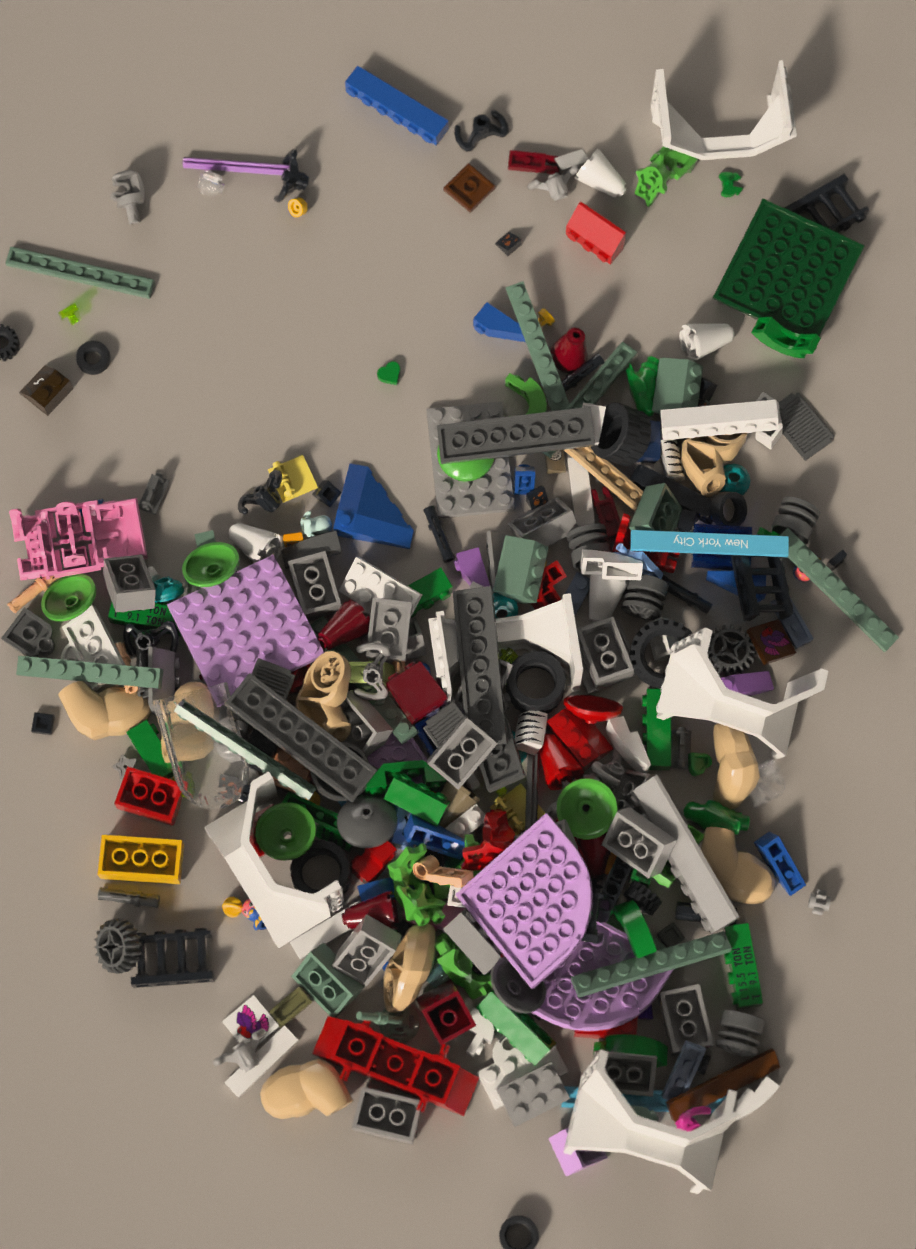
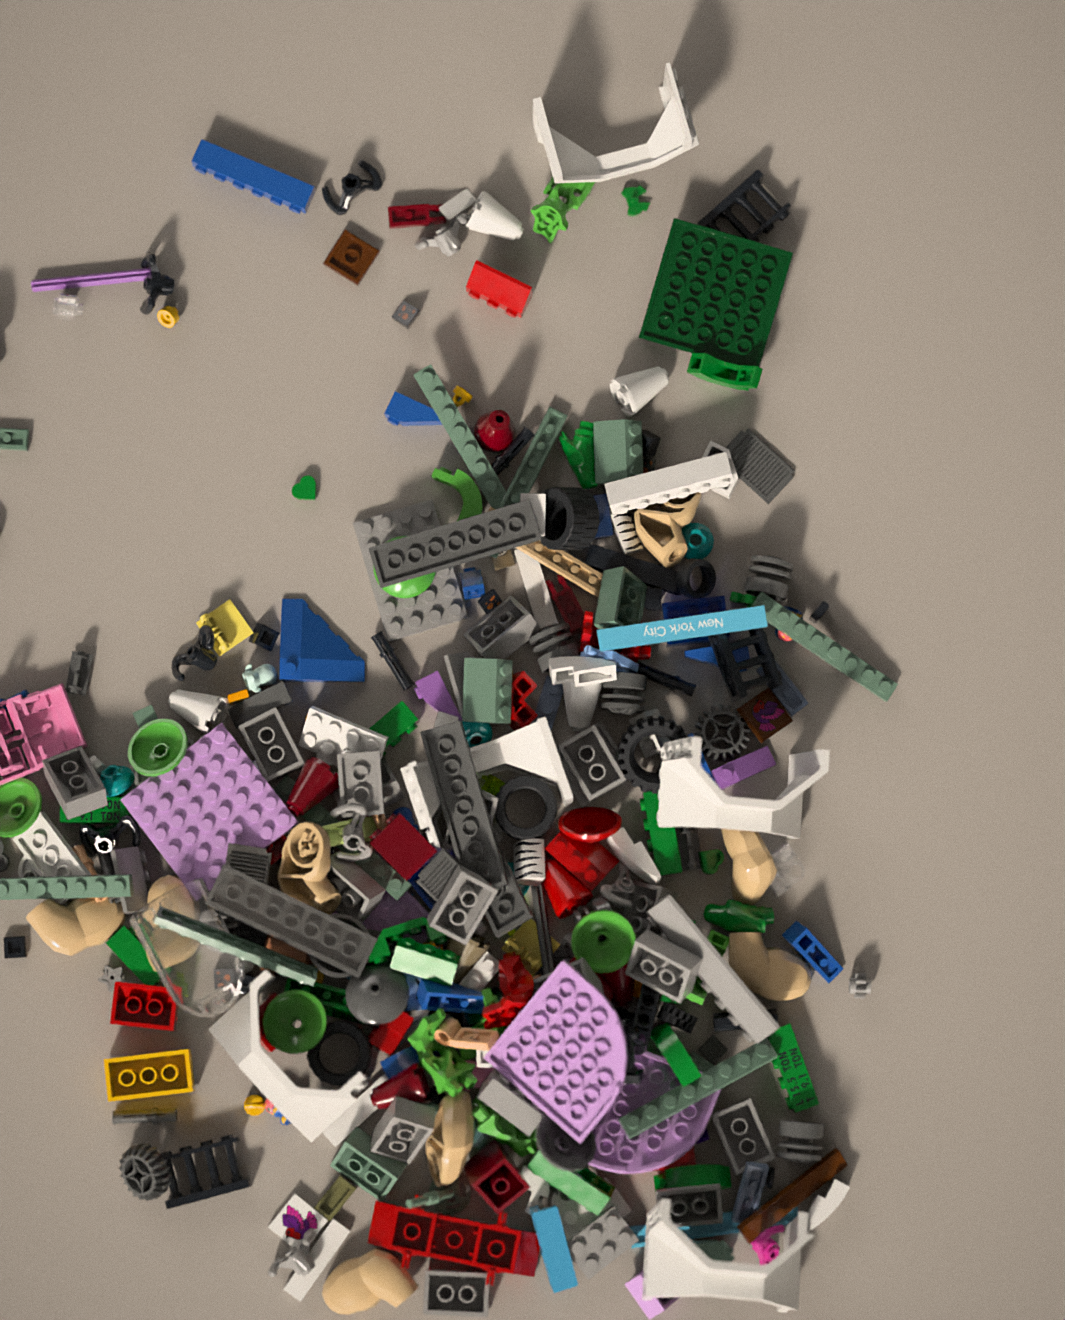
camera: 10 degrees left, 10 degrees up
(487, 1089) = (554, 1248): none -> dark azure panel

